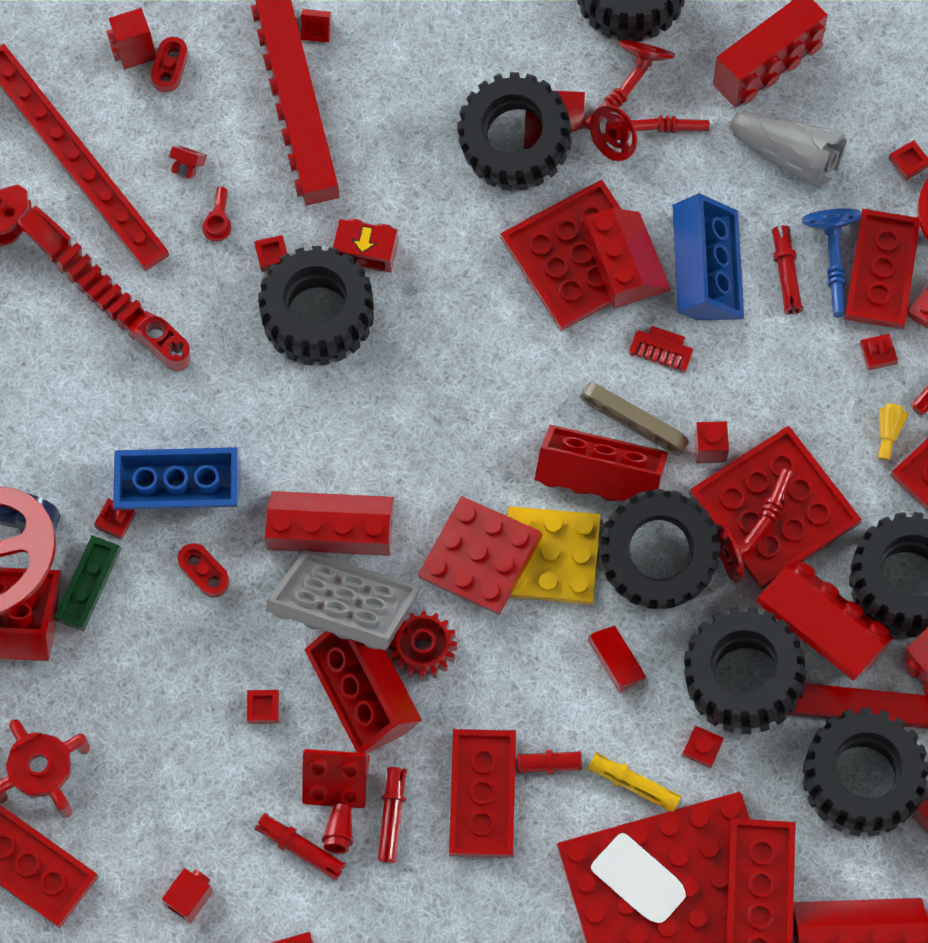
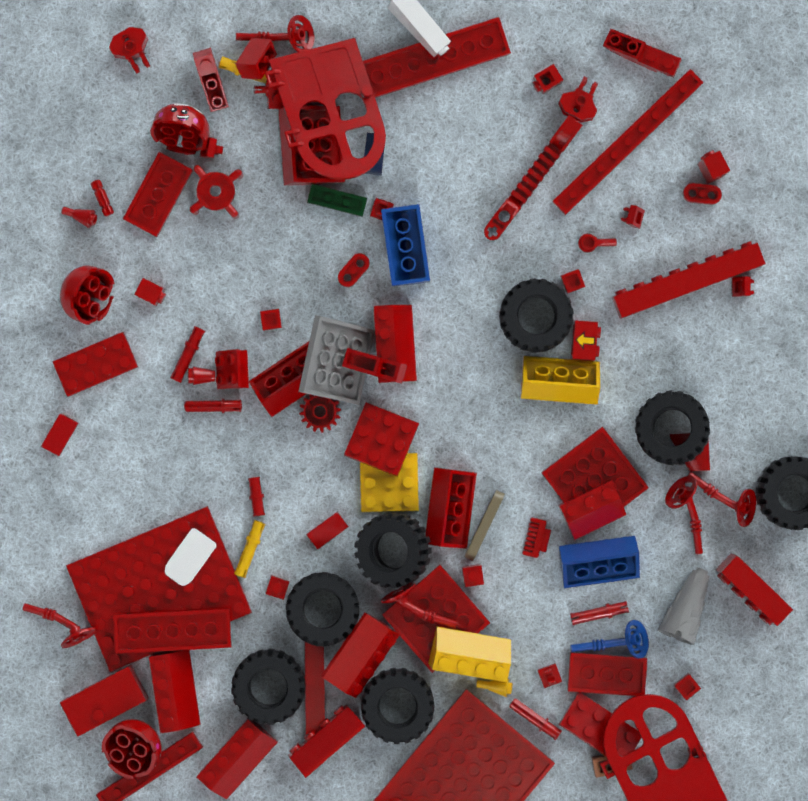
camera: 80 degrees right, 20 degrees up
(359, 541) = (374, 365): none -> red slope
(421, 285) = (560, 380): none -> yellow slope
(482, 793) = (232, 458): red plate -> none
(836, 455) = (471, 654): none -> yellow slope

